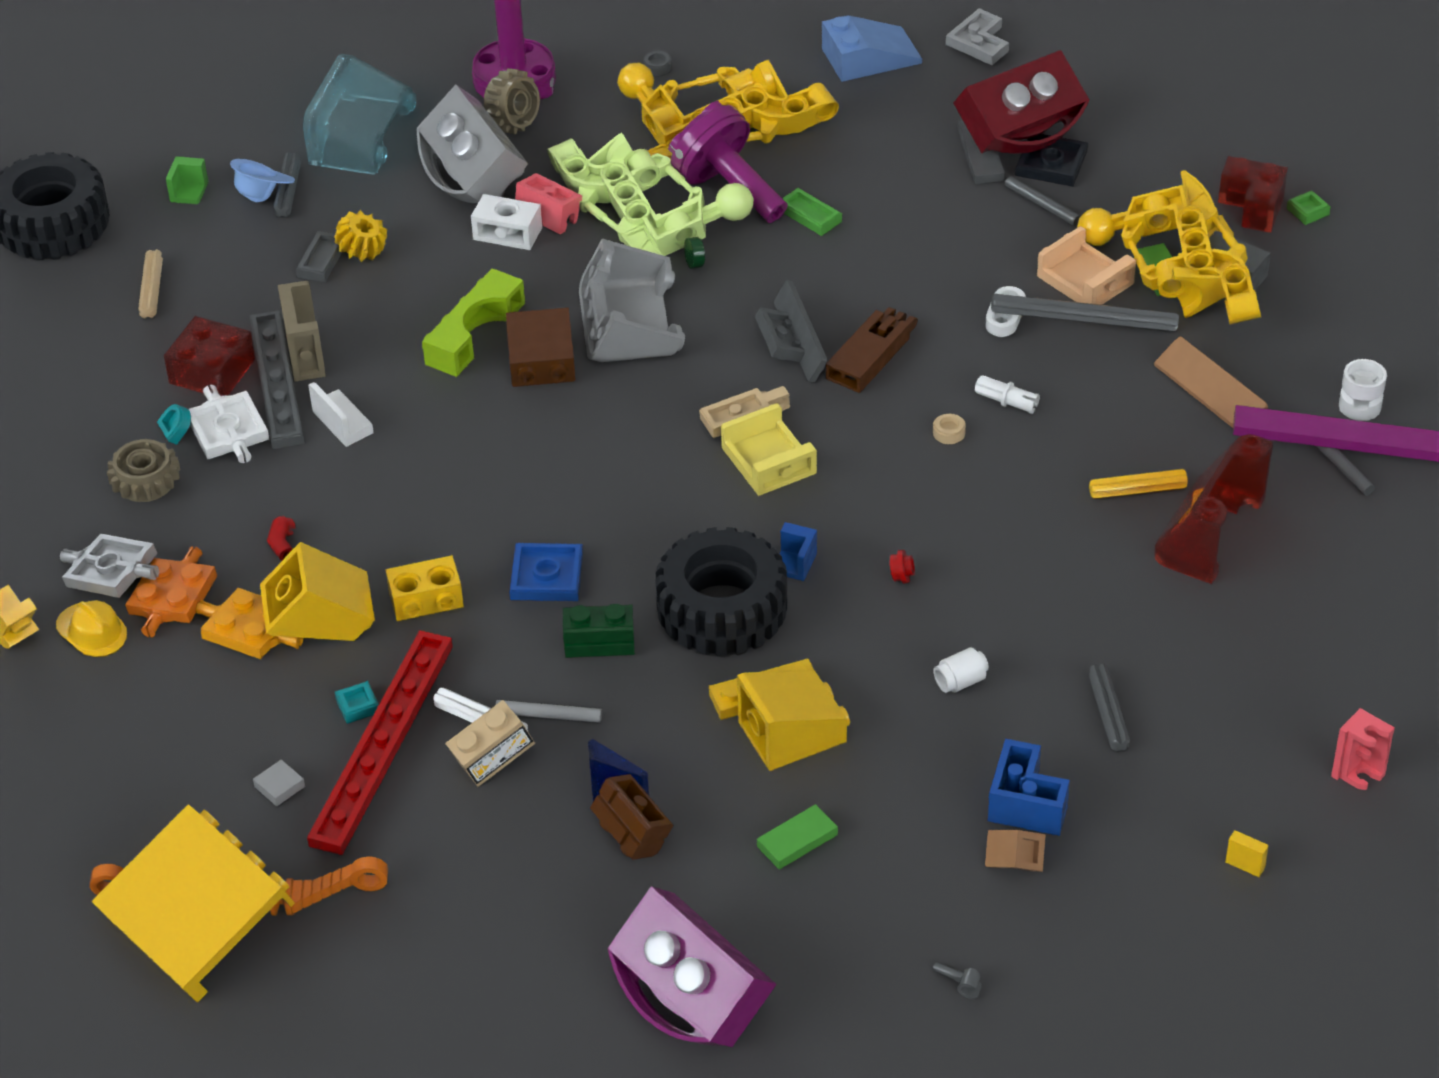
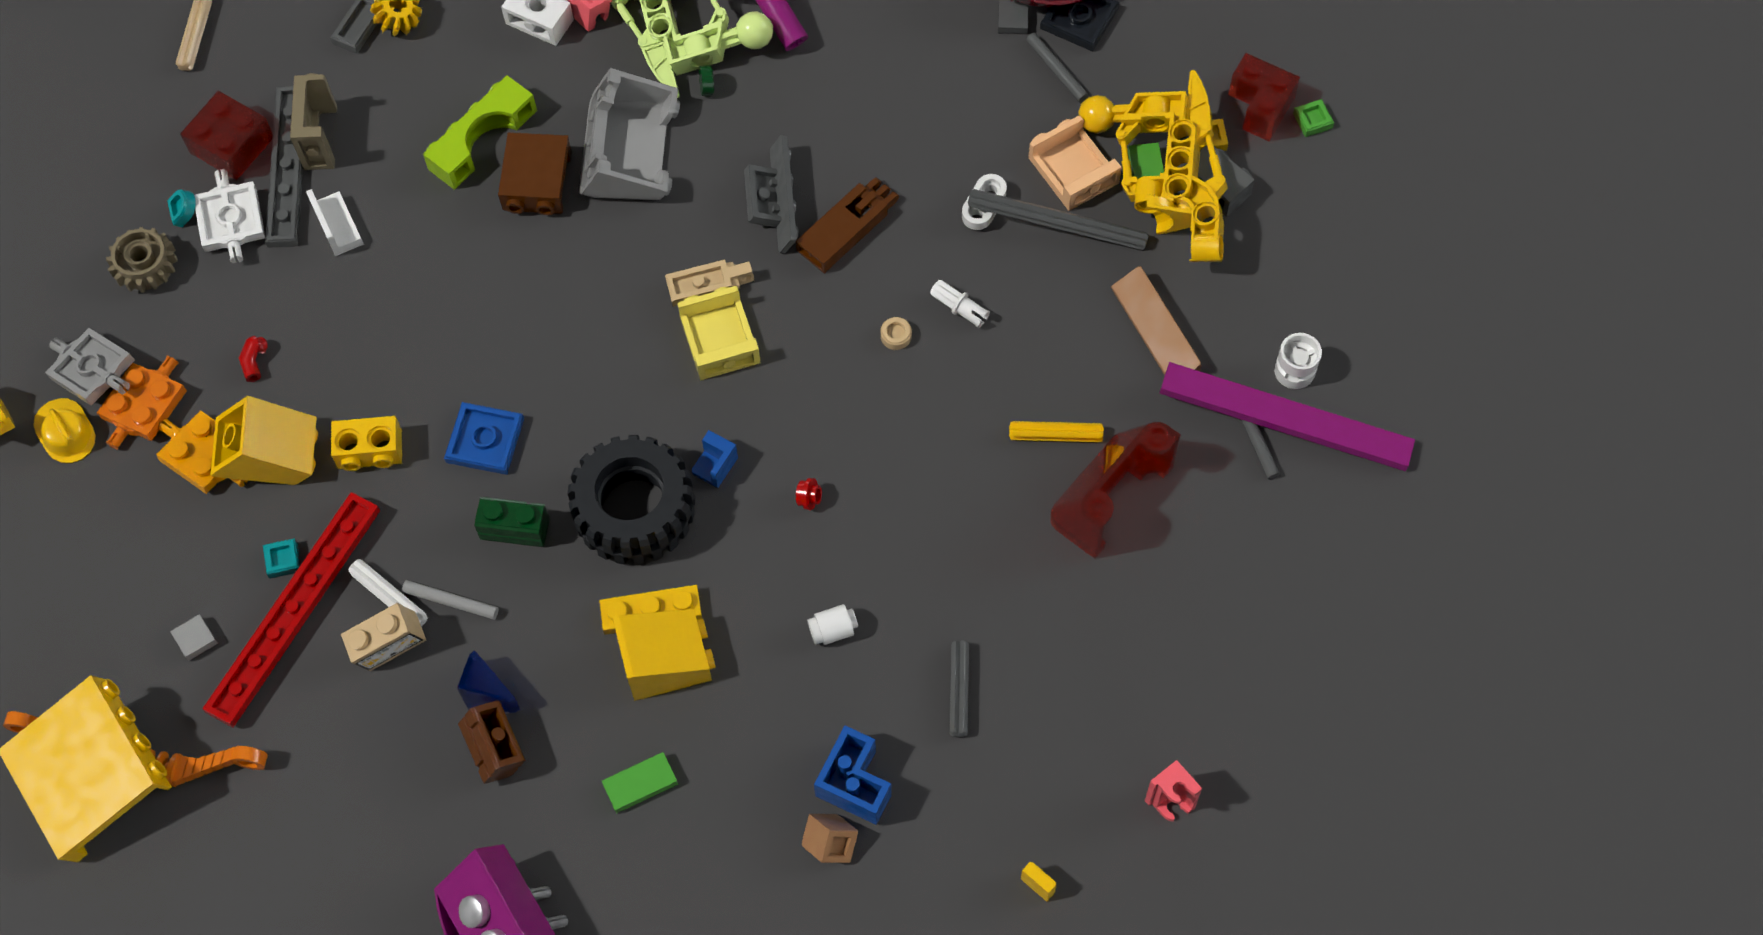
camera: 10 degrees right, 20 degrees up
(811, 212) = (830, 44): bright green tile -> none

